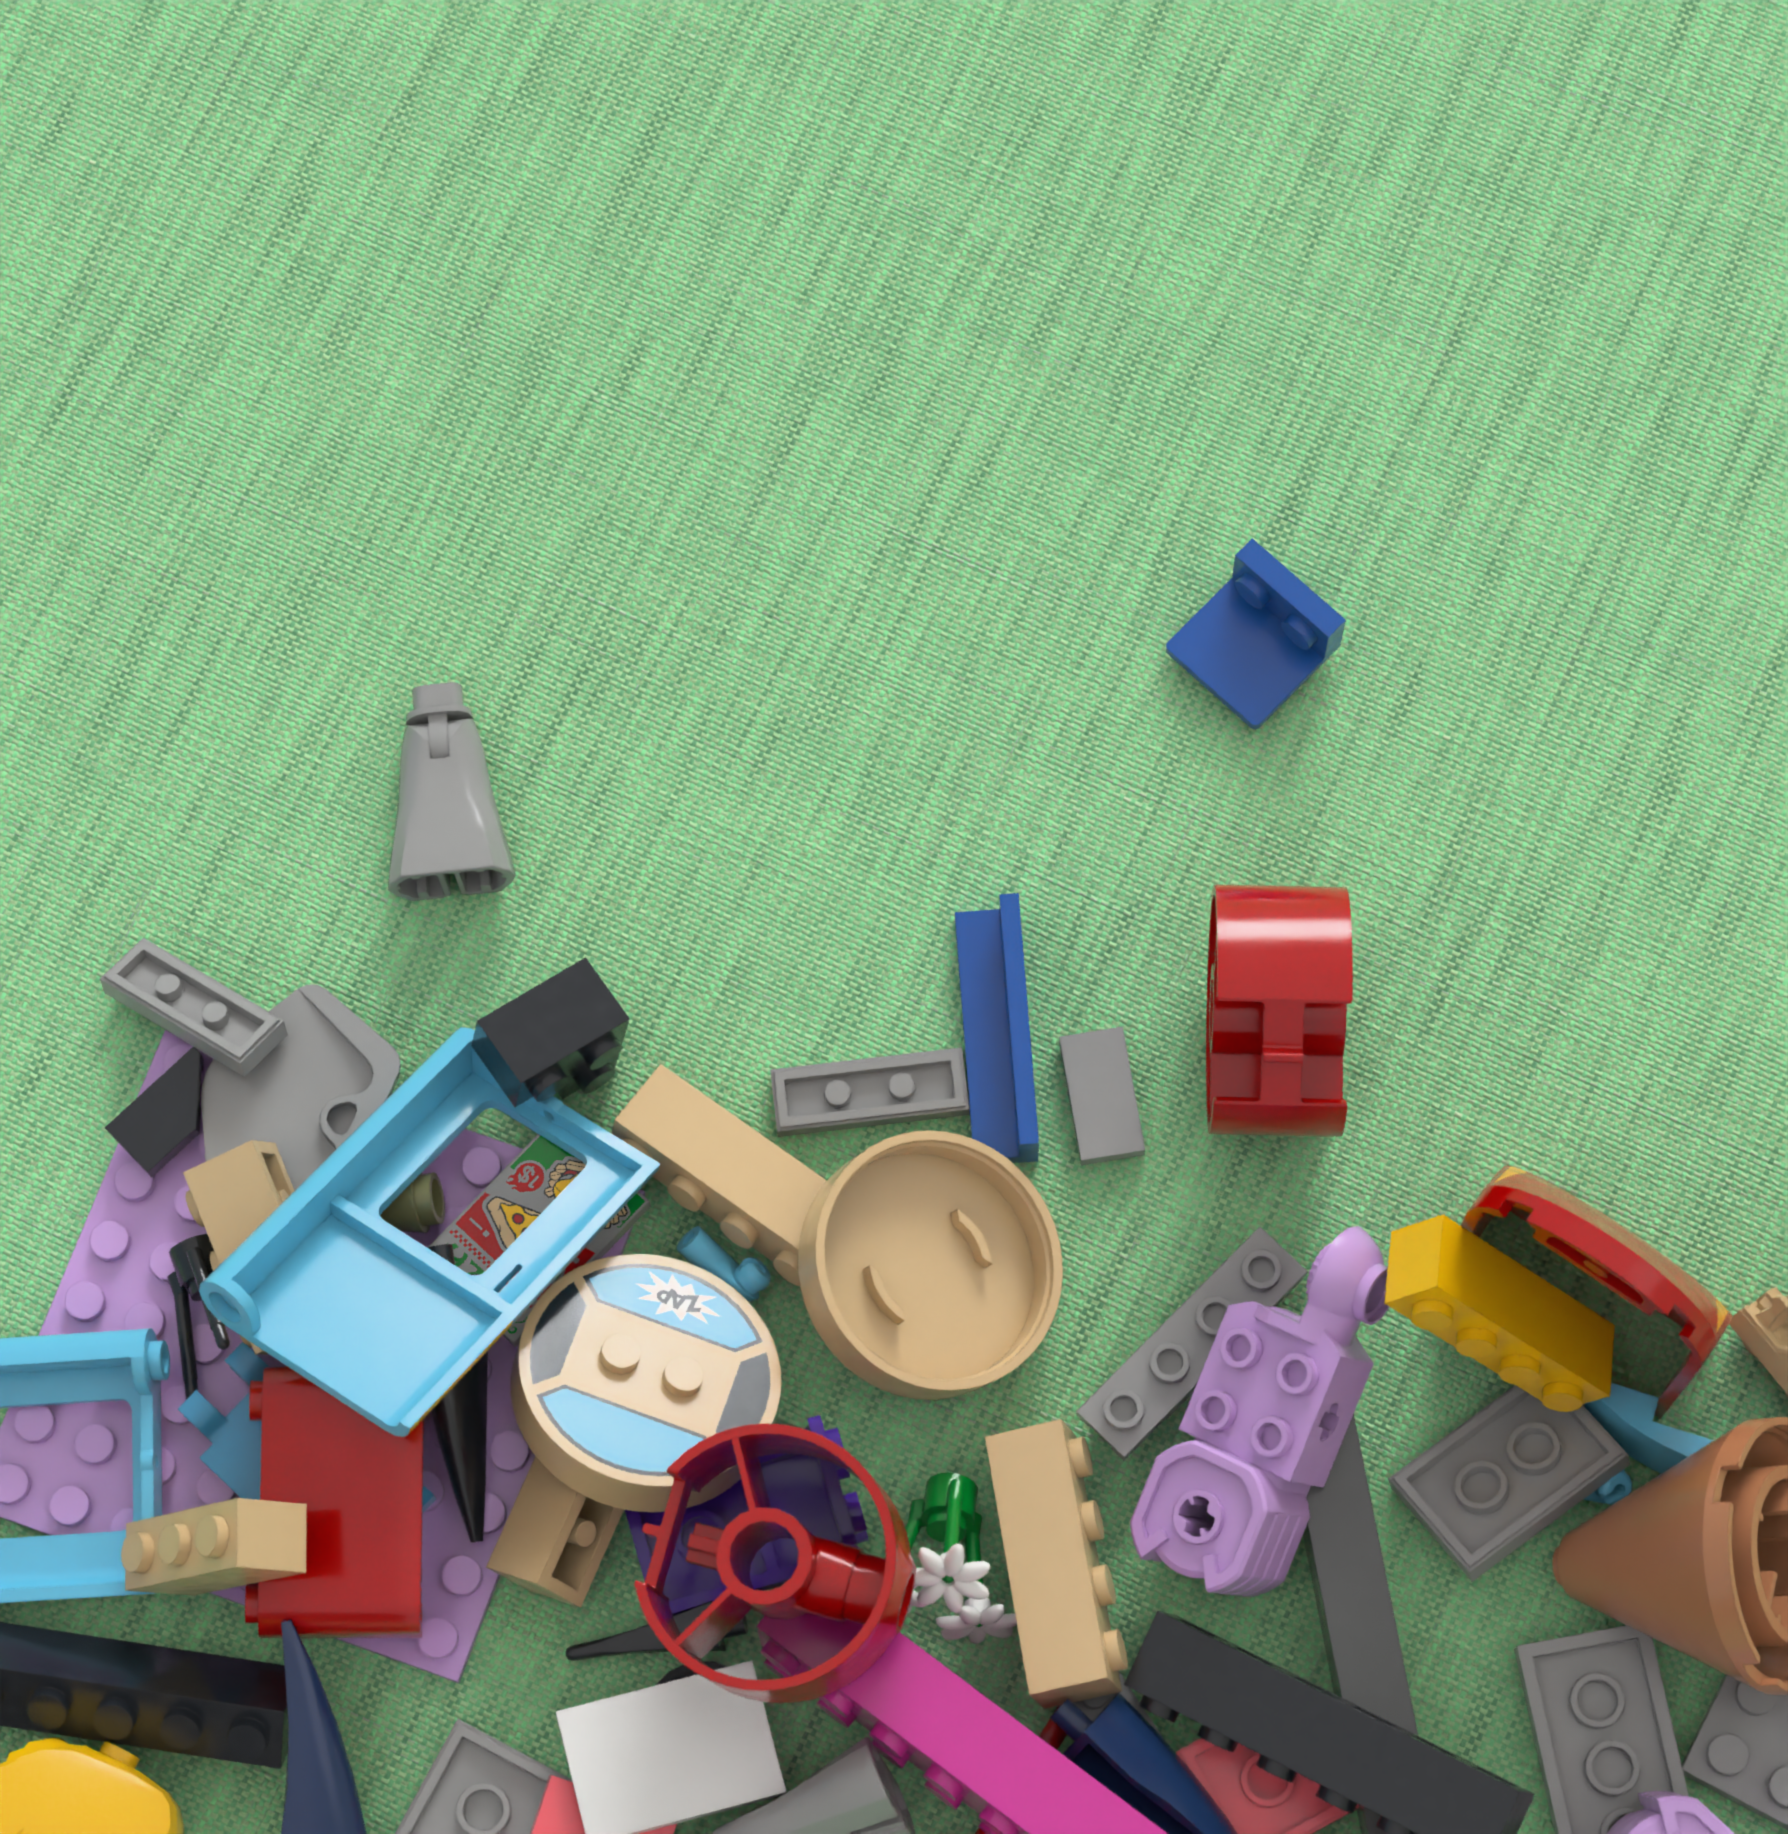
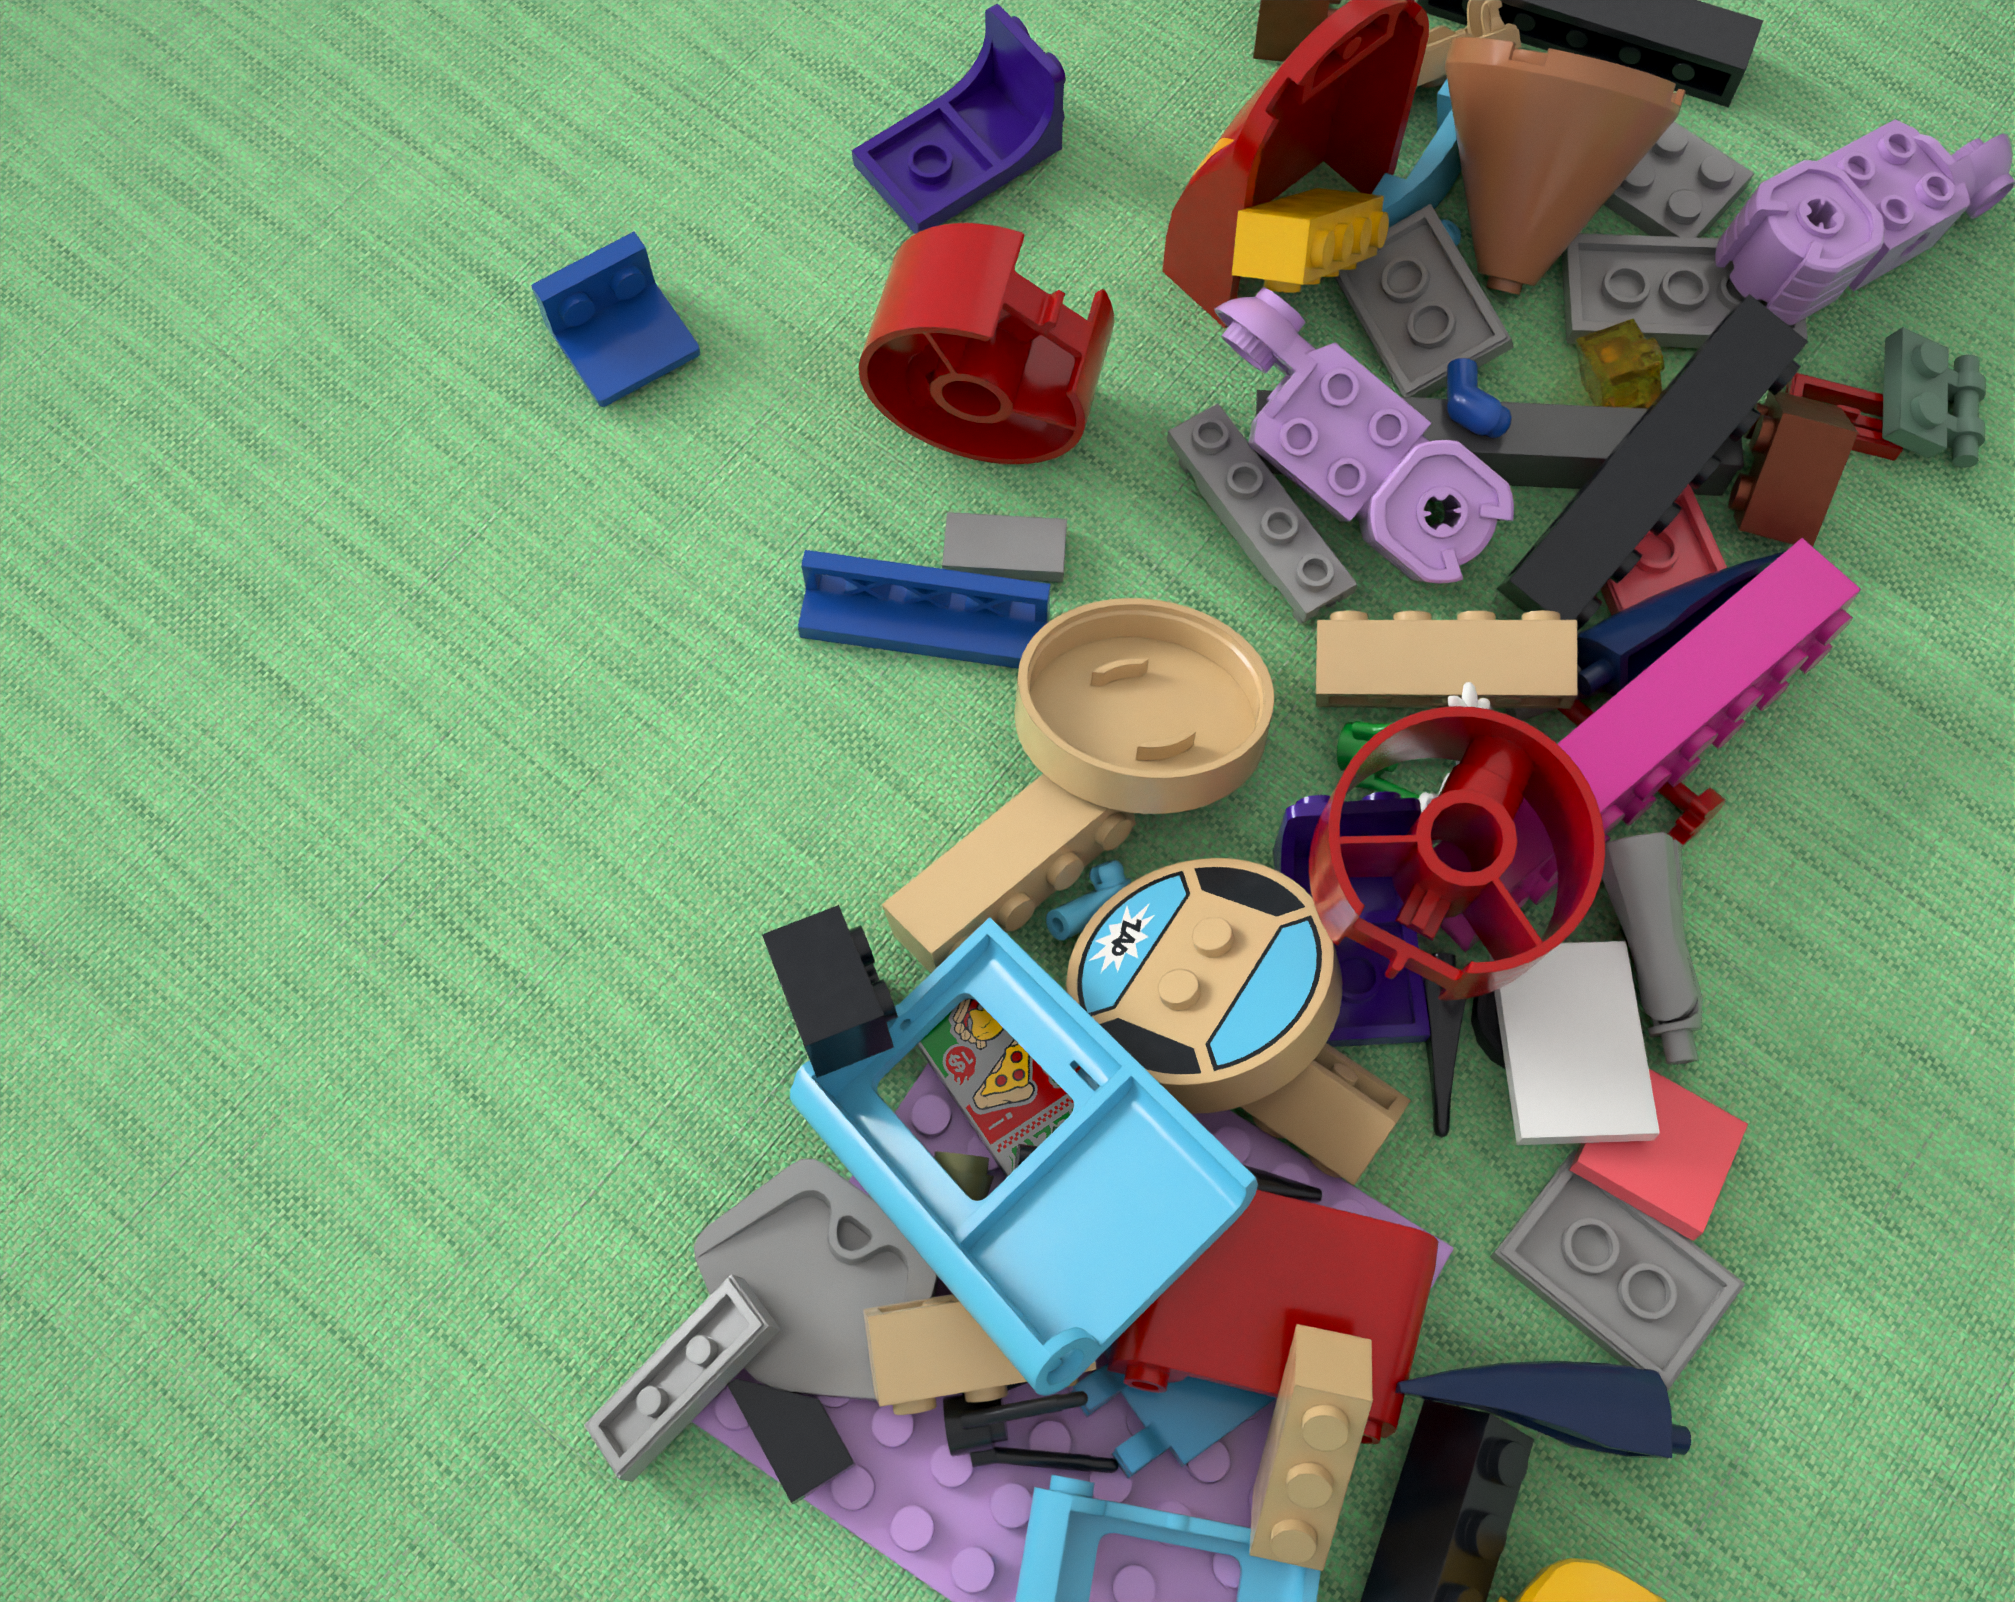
camera: 80 degrees left, 5 degrees down
(445, 804) = (538, 1071): light grey piece -> none
(870, 1092) = (948, 742): light grey tile -> none
(1359, 1535) = (1472, 406): none -> blue arm
(1470, 1702) = (1620, 366): none -> clear yellow brick
(1591, 929) = (974, 135): none -> dark purple bracket

